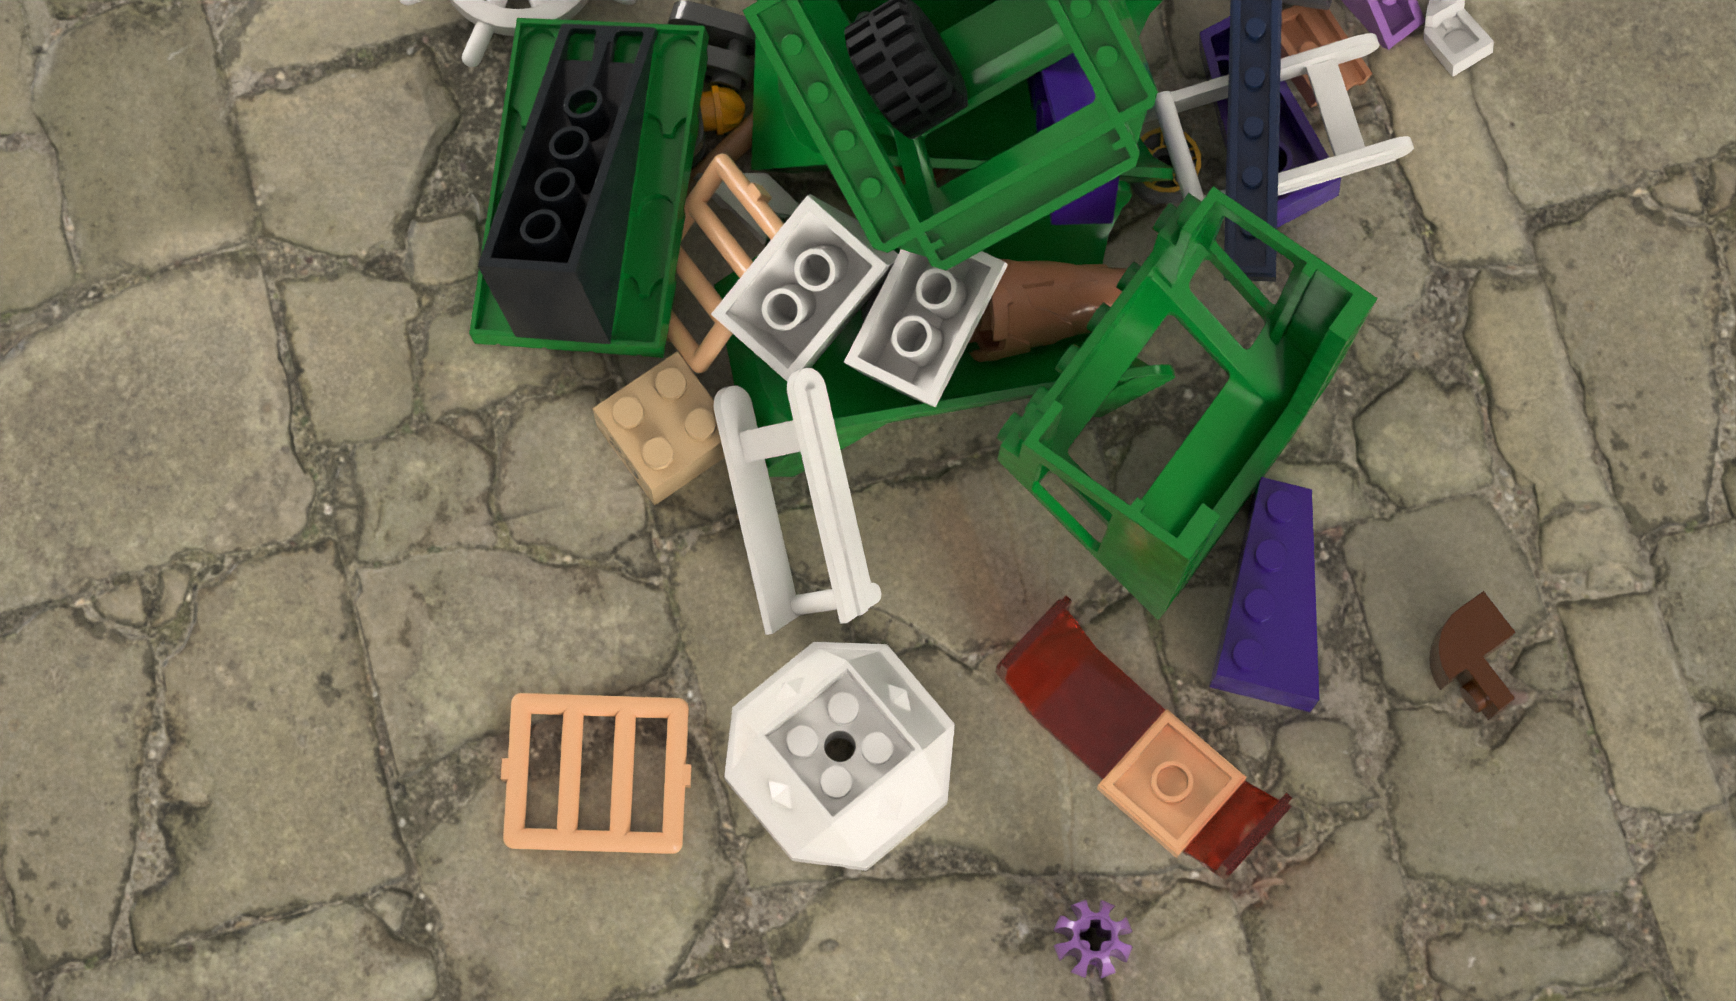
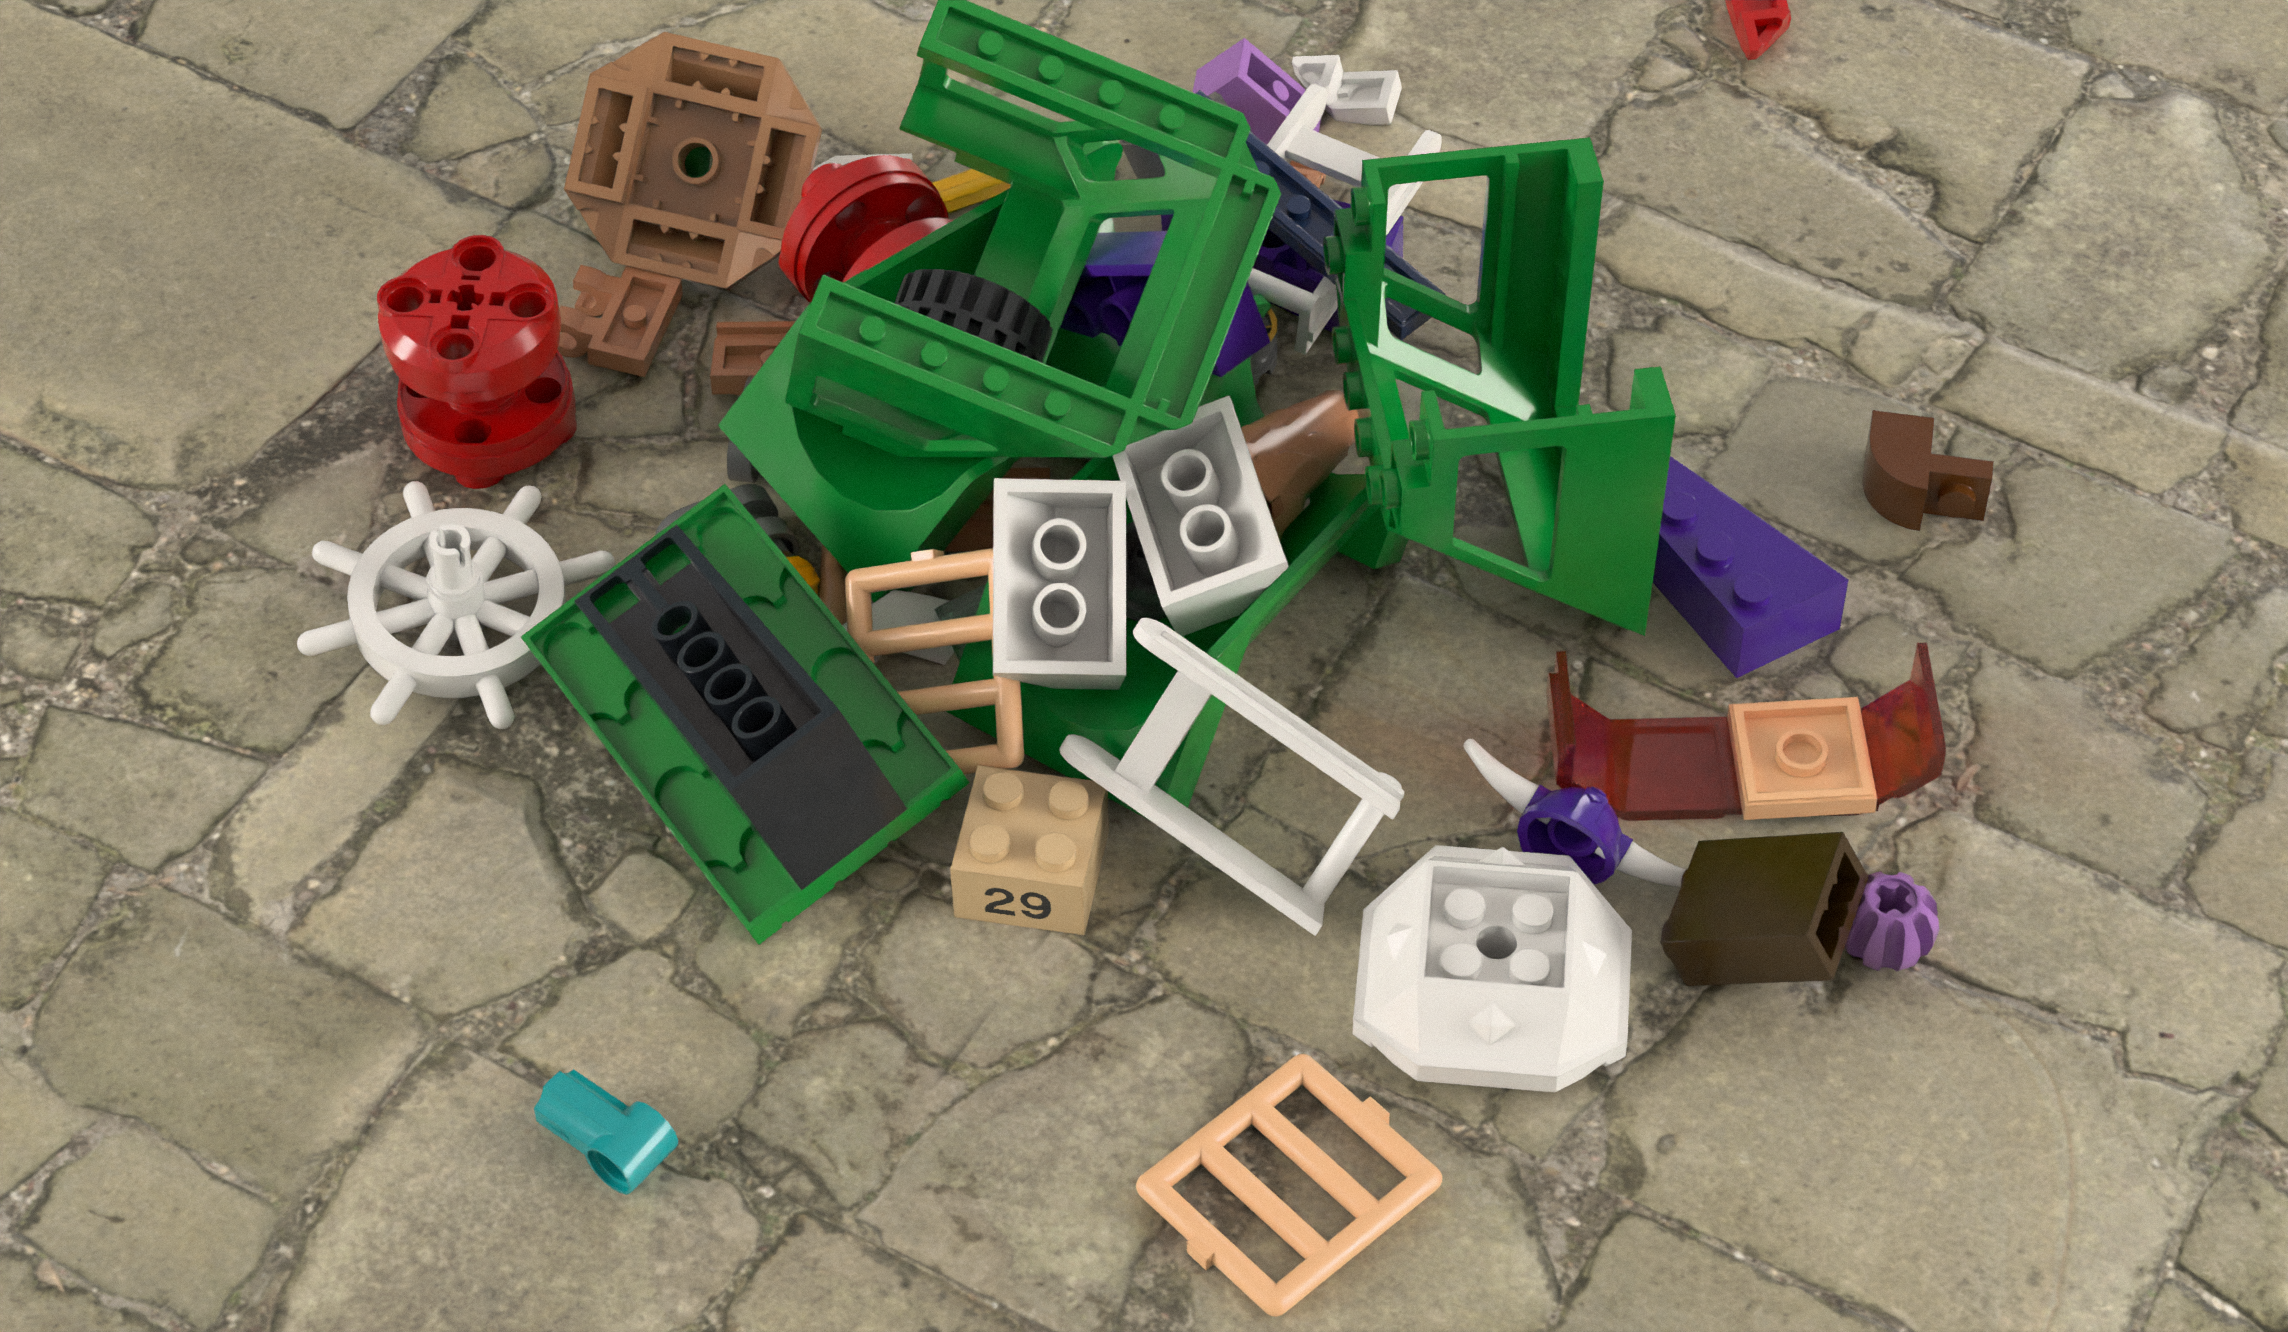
camera: 40 degrees left, 25 degrees down
(272, 408) = (617, 1139): none -> teal piece
(981, 708) = (1572, 824): none -> dark purple helmet
(1019, 868) = (1764, 909): none -> dark brown brick

